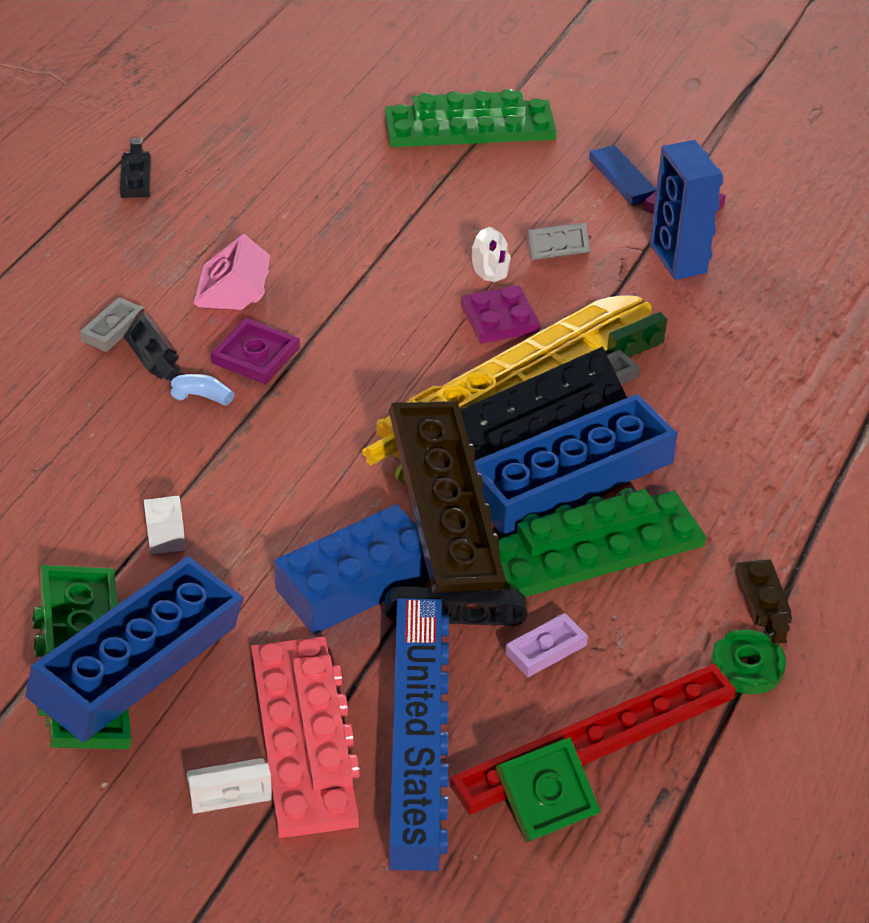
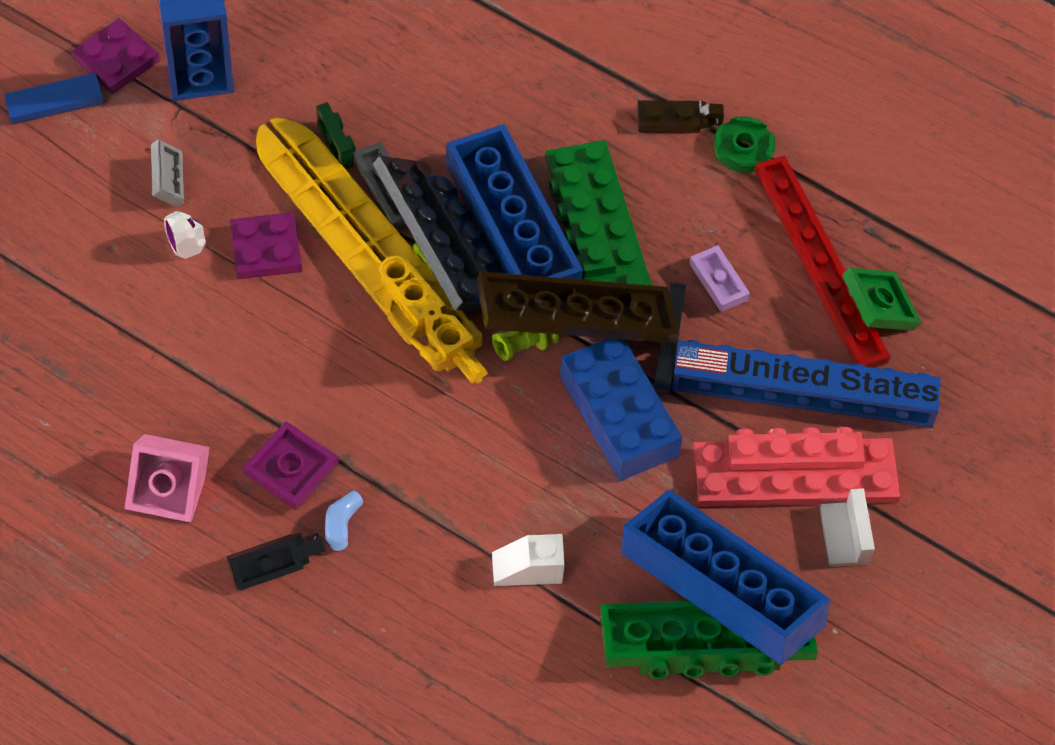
camera: 85 degrees left, 15 degrees up
(111, 324) = (221, 598): light grey plate -> none

